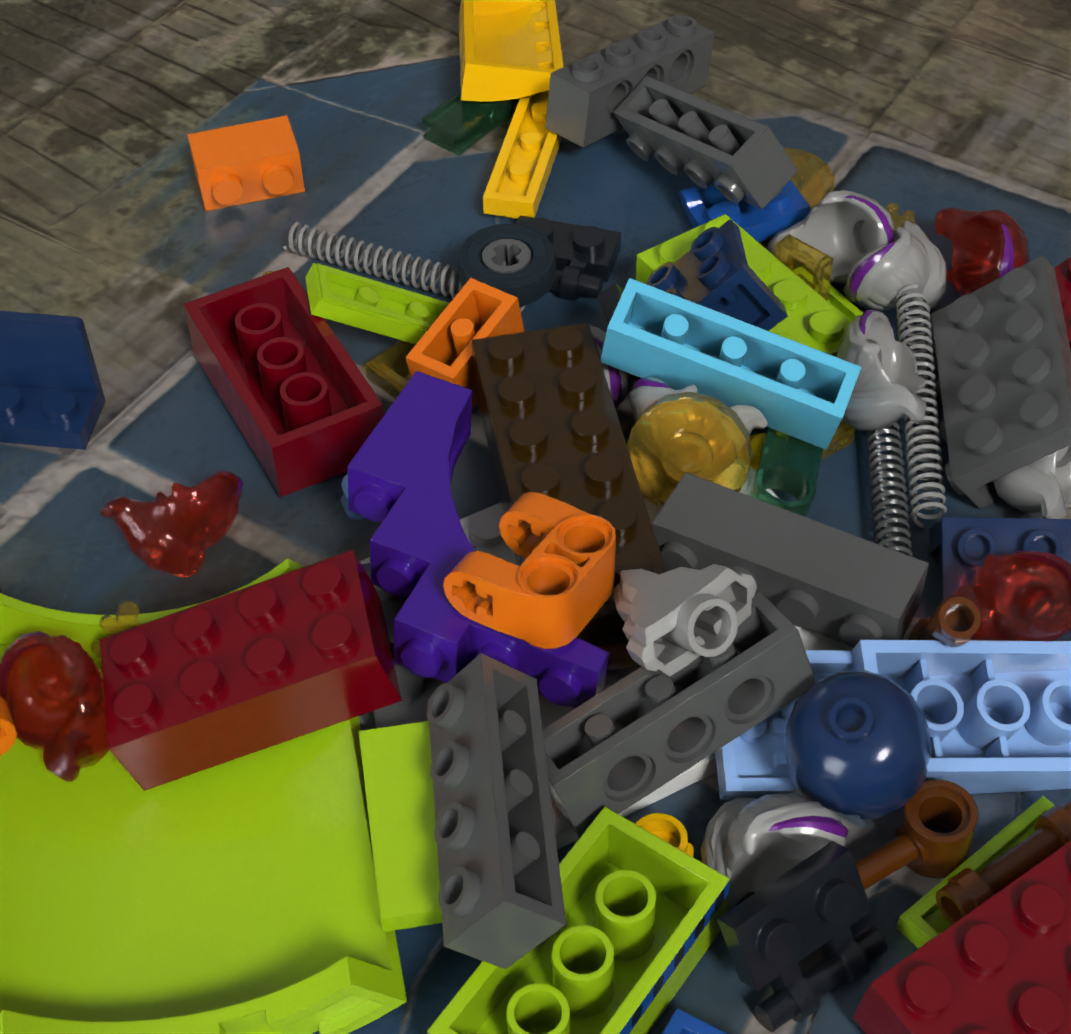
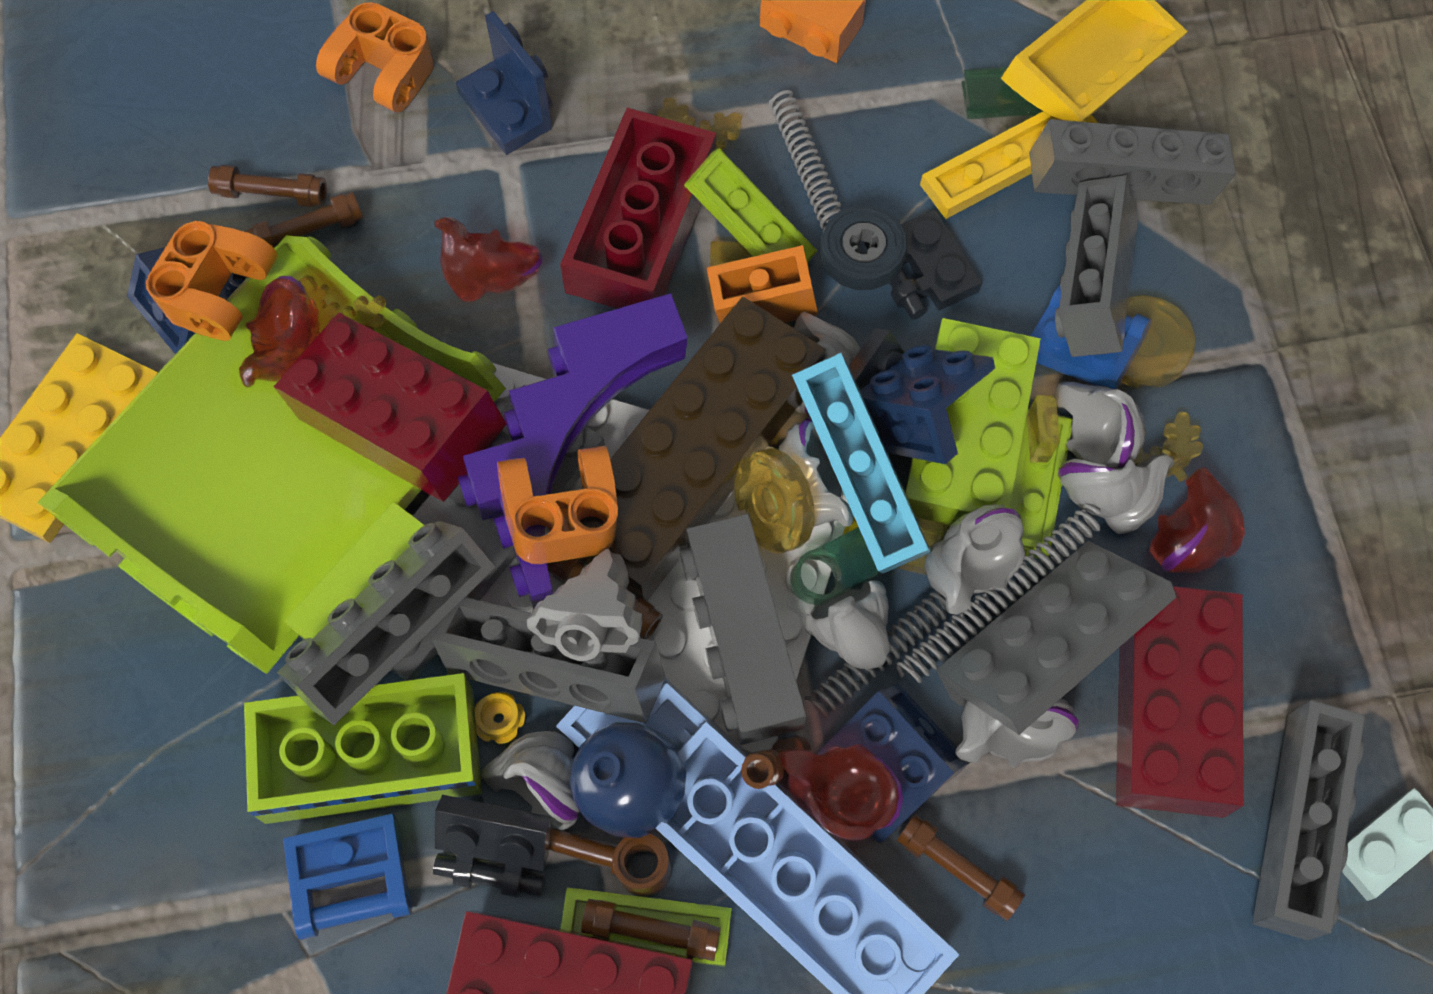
camera: 45 degrees right, 20 degrees up
(860, 495) = (854, 625): none -> light grey hair

